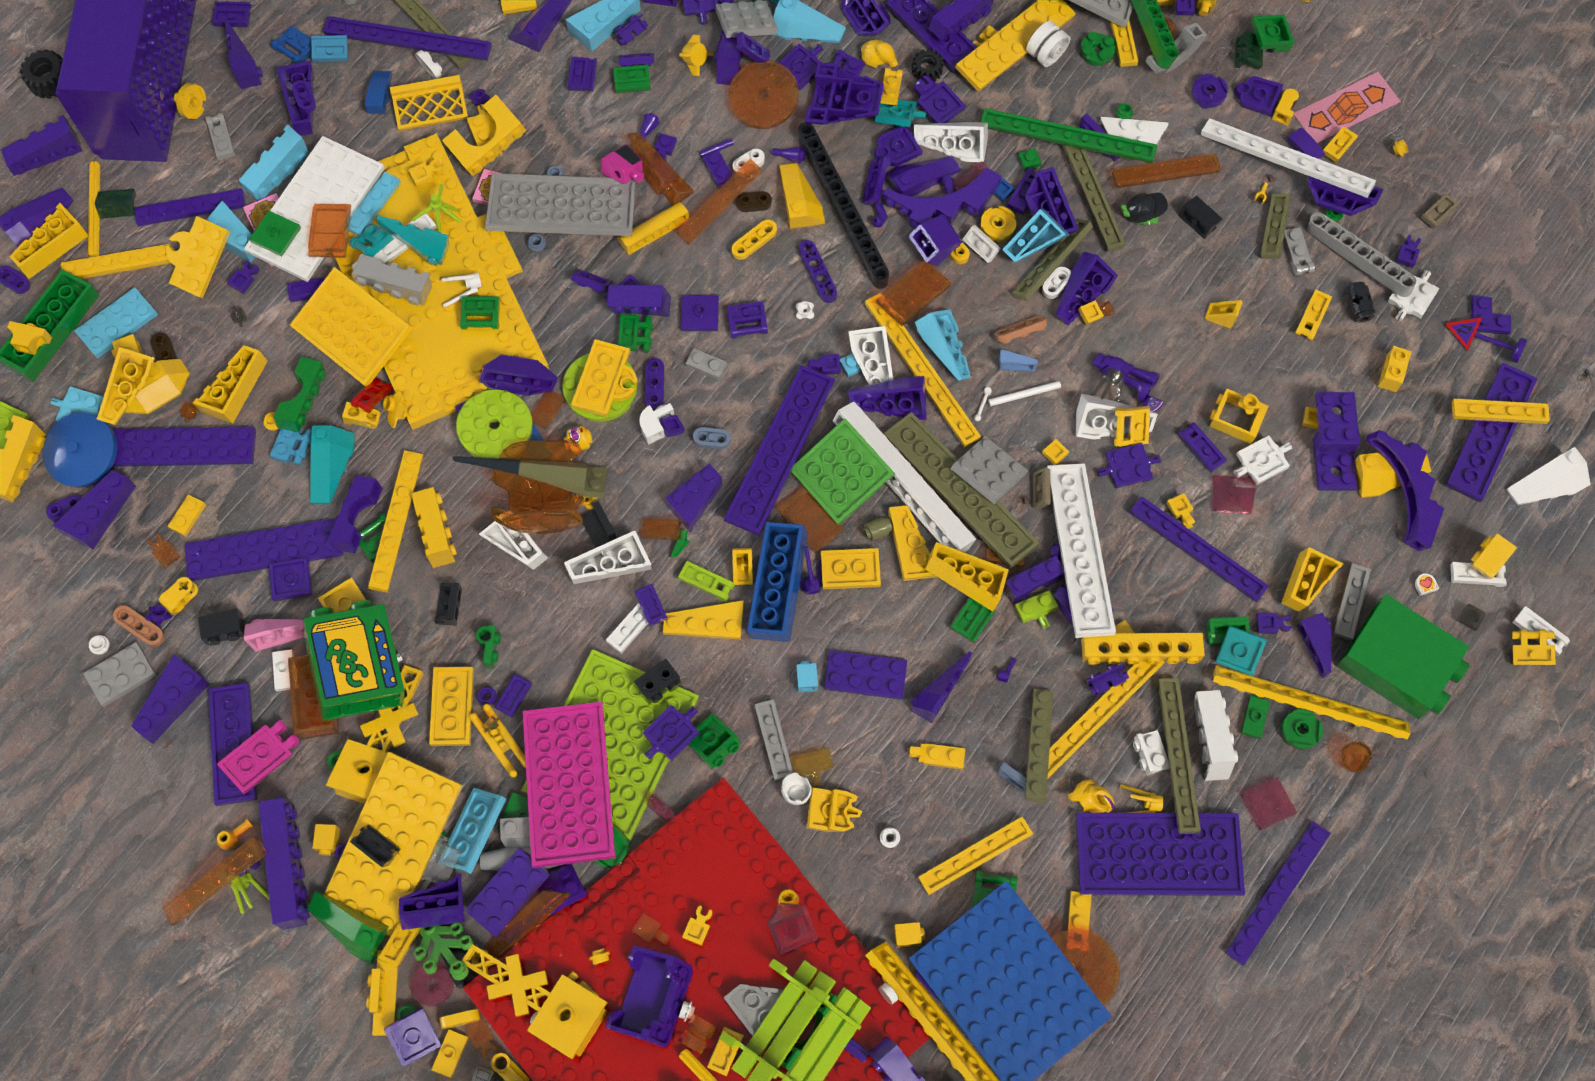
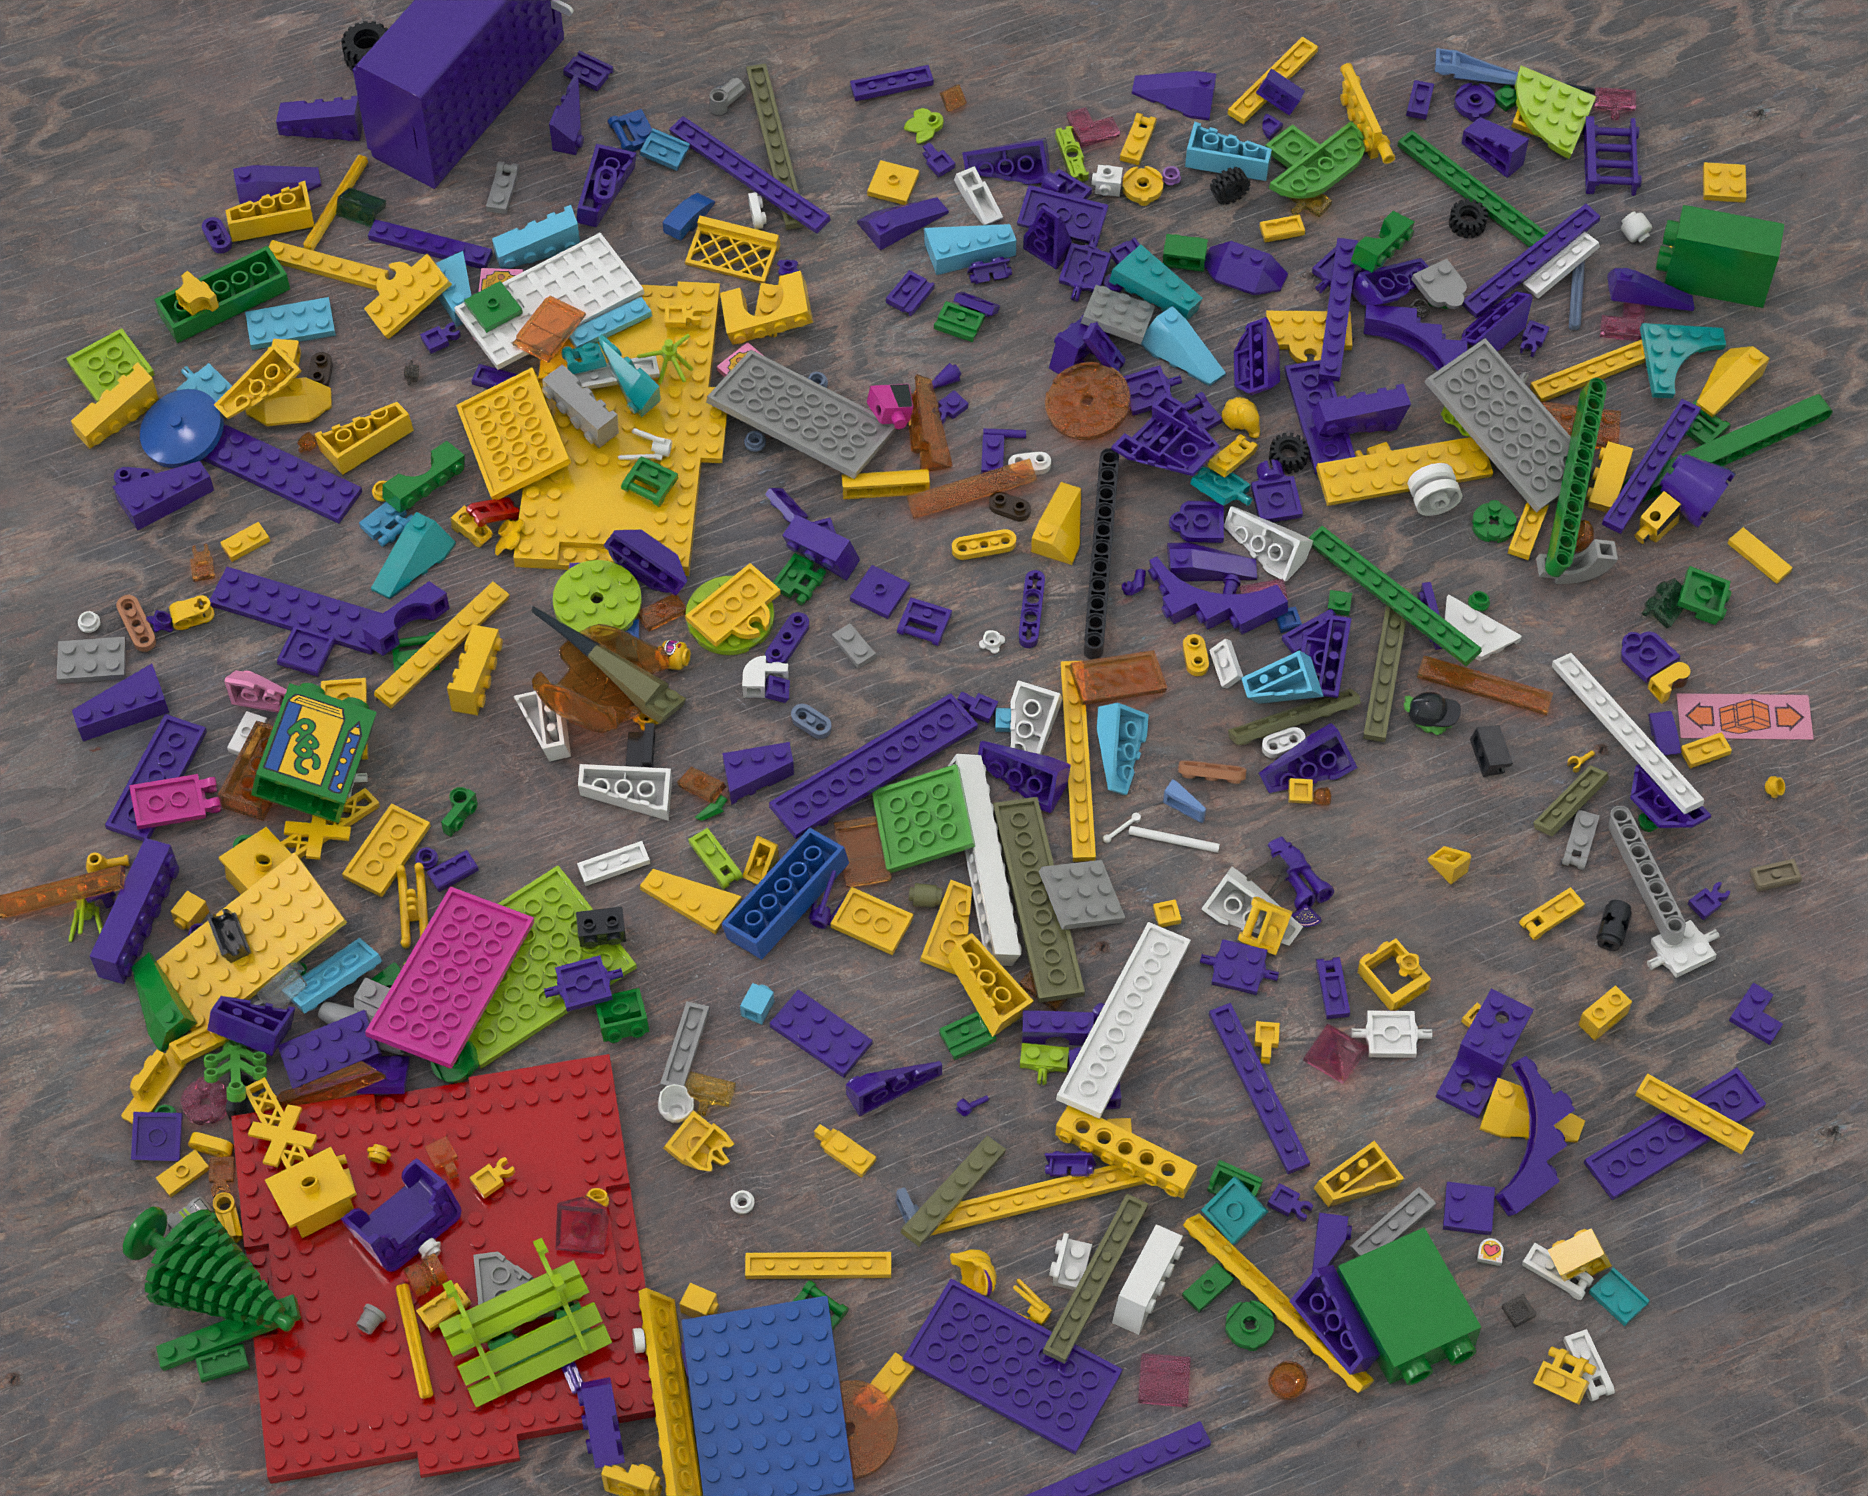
camera: 30 degrees right, 10 degrees down
(190, 100) = (486, 132): yellow plate -> none
(221, 627) = (212, 661): black brick -> none
(448, 604) = (445, 752): black hinge -> none
(490, 724) = (412, 883): clear yellow plate -> none
(650, 605) = (642, 850): dark purple plate -> none
(660, 809) = (527, 1050): clear pink gear -> none
(694, 54) = (1040, 326): yellow piece -> none
(794, 154) = (1085, 479): dark purple cone -> none
(875, 180) = (1153, 545): dark purple plate -> none
(935, 239) = (1174, 634): dark purple slope -> none
(998, 214) = (1258, 640): yellow plate -> none
(1041, 488) = (1126, 942): dark tan plate -> none
(1206, 99) = (1592, 635): dark purple plate -> none
(1362, 694) = (1335, 1319): none -> dark purple wedge
(1391, 560) = (1468, 1208): none -> dark purple plate
(1466, 331) = (1719, 1014): dark purple piece -> none
(1528, 570) = (1619, 1296): none -> teal plate
(1557, 478) = (1718, 1217): white wedge -> none

